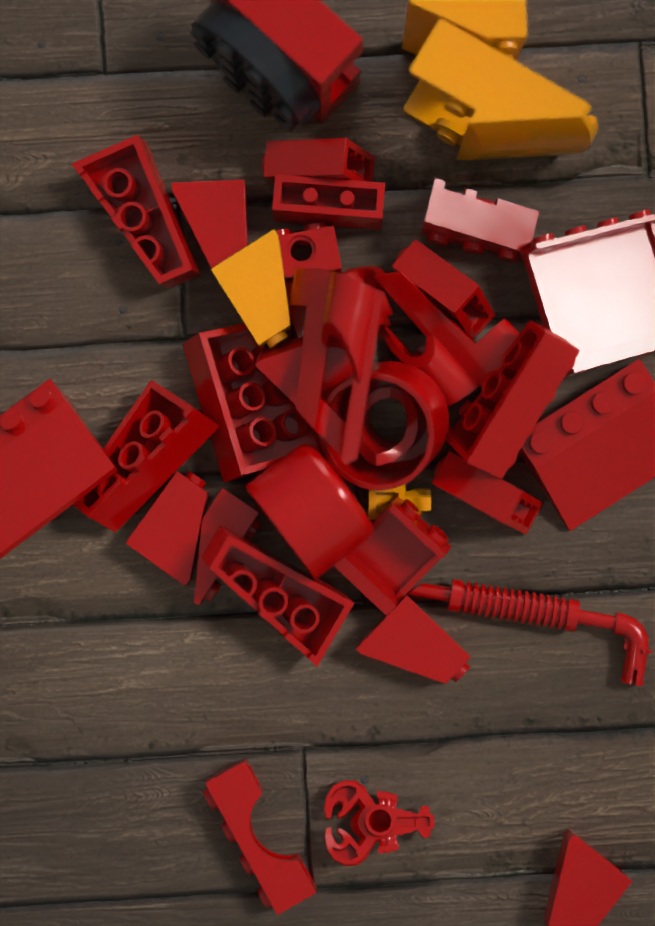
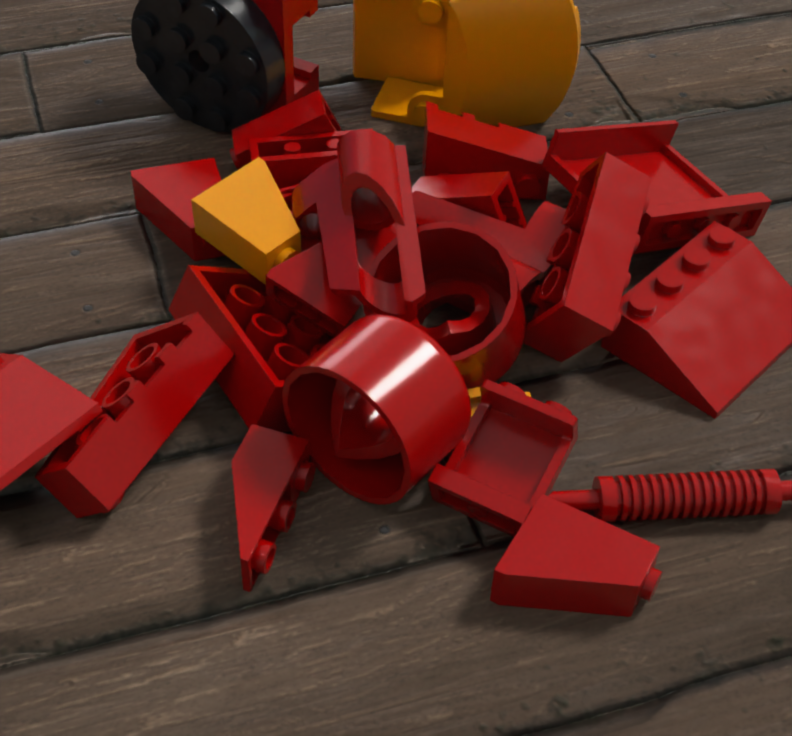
camera: 15 degrees left, 40 degrees down
(136, 199) = (97, 202): red wedge -> none
(173, 527) = (189, 497): red slope -> none
(287, 597) = (362, 514): red wedge -> none
(486, 492) = (601, 376): red slope -> none

